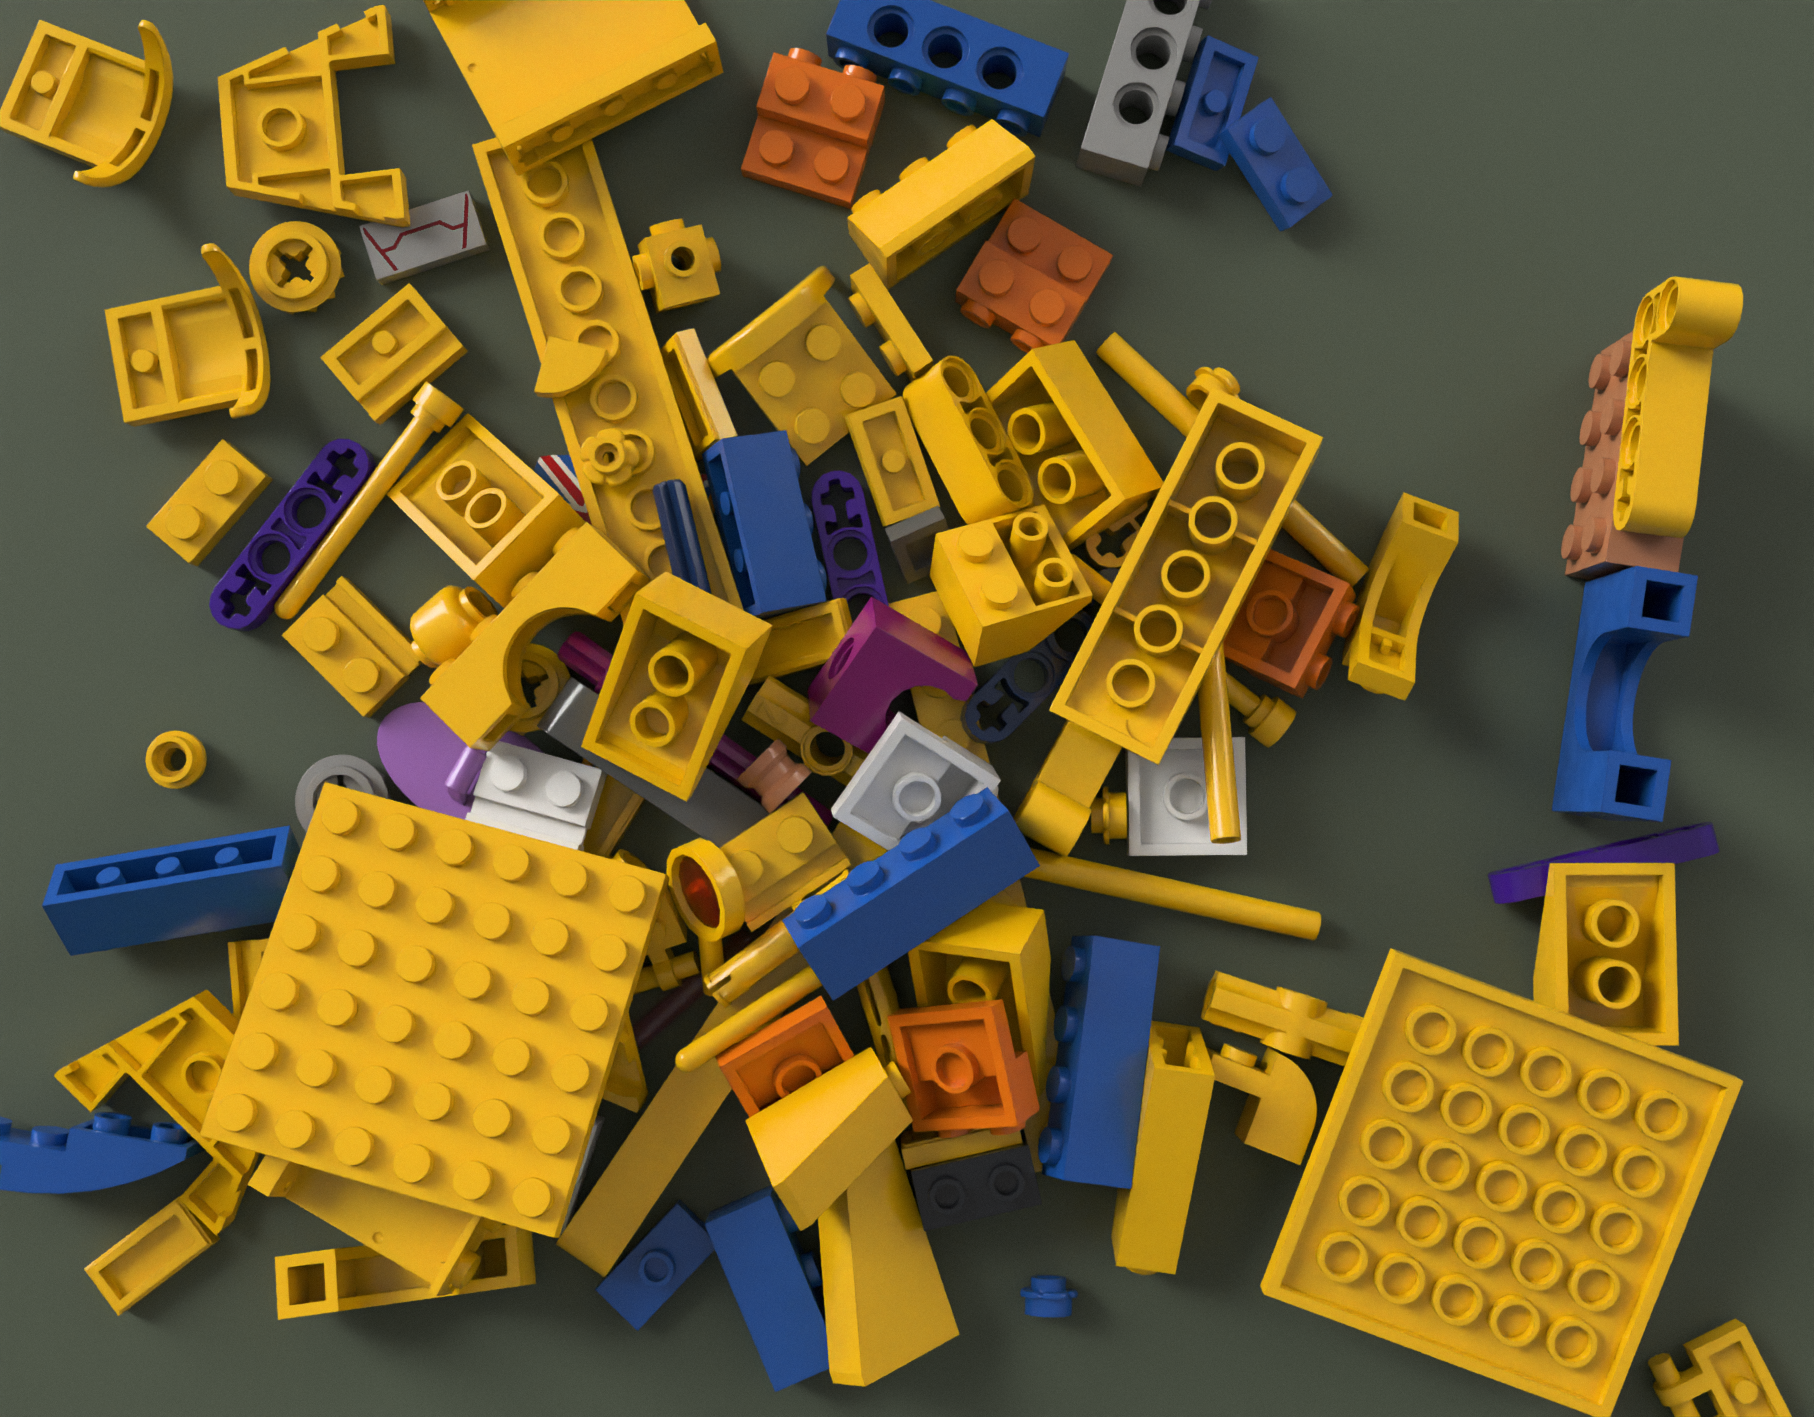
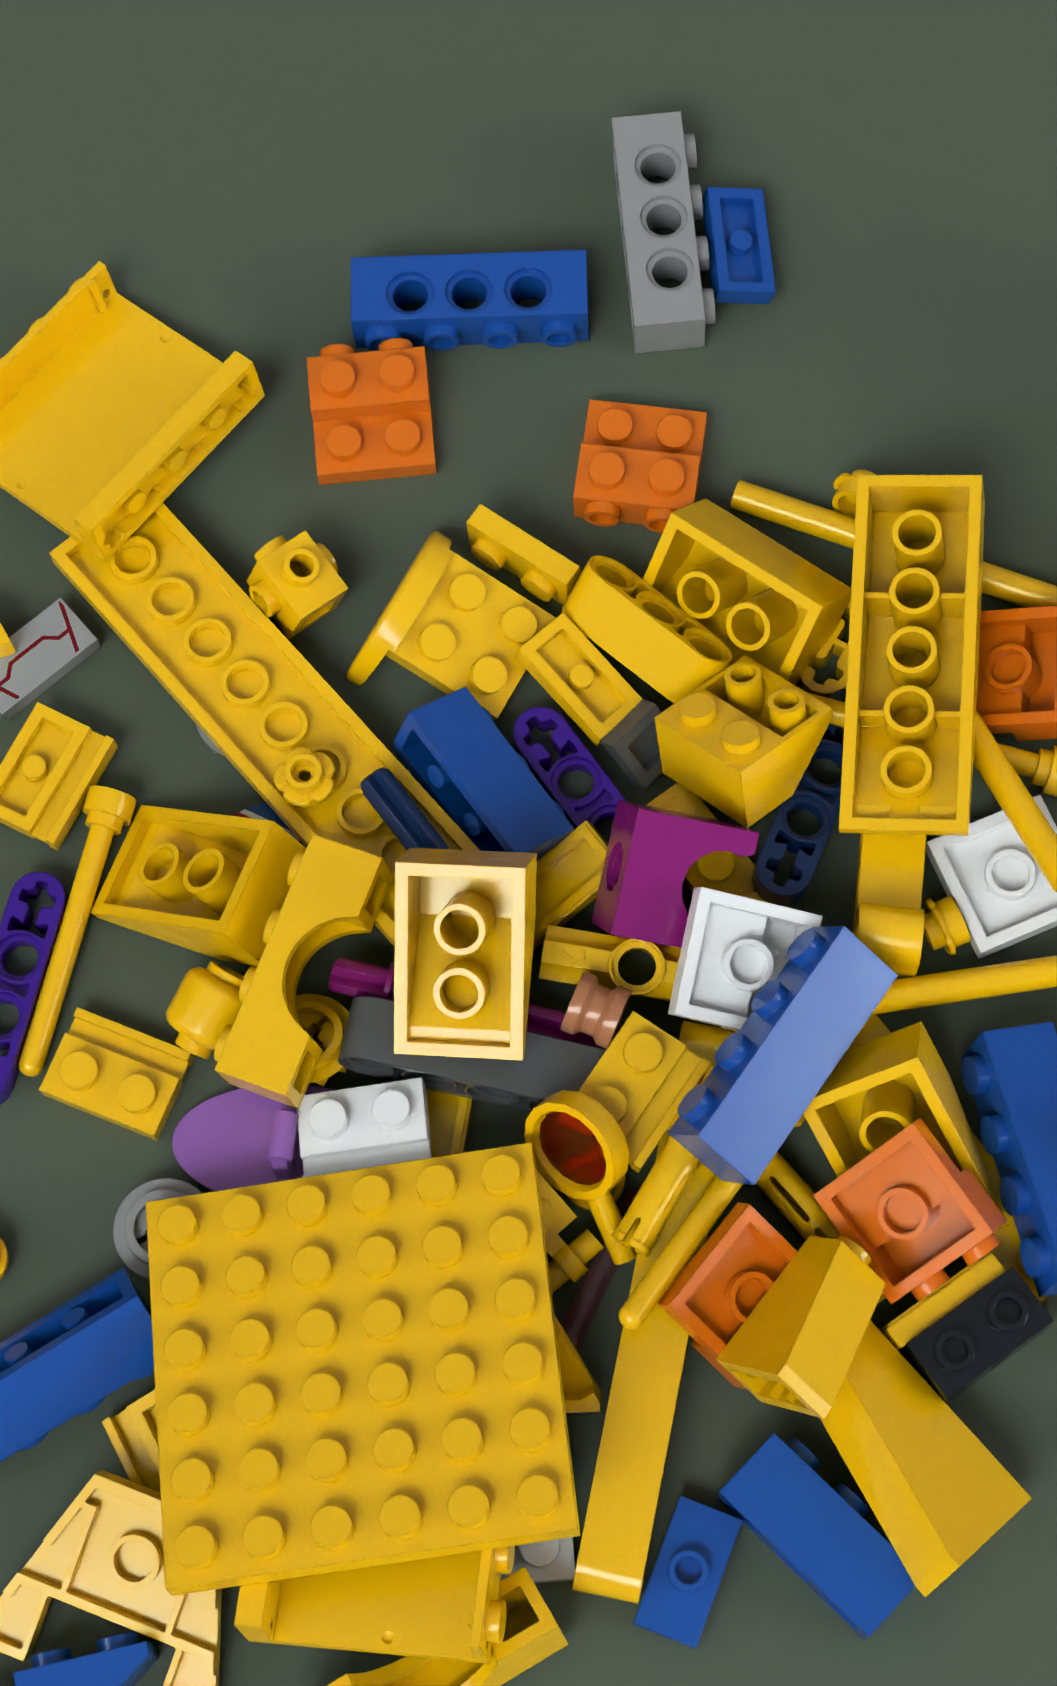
camera: 20 degrees left, 15 degrees down
(568, 367) = (229, 711): yellow tile -> none
(696, 392) = (362, 687): yellow tile -> none
(941, 200) = (523, 424): yellow slope -> none
(1275, 164) = (822, 274): blue plate -> none

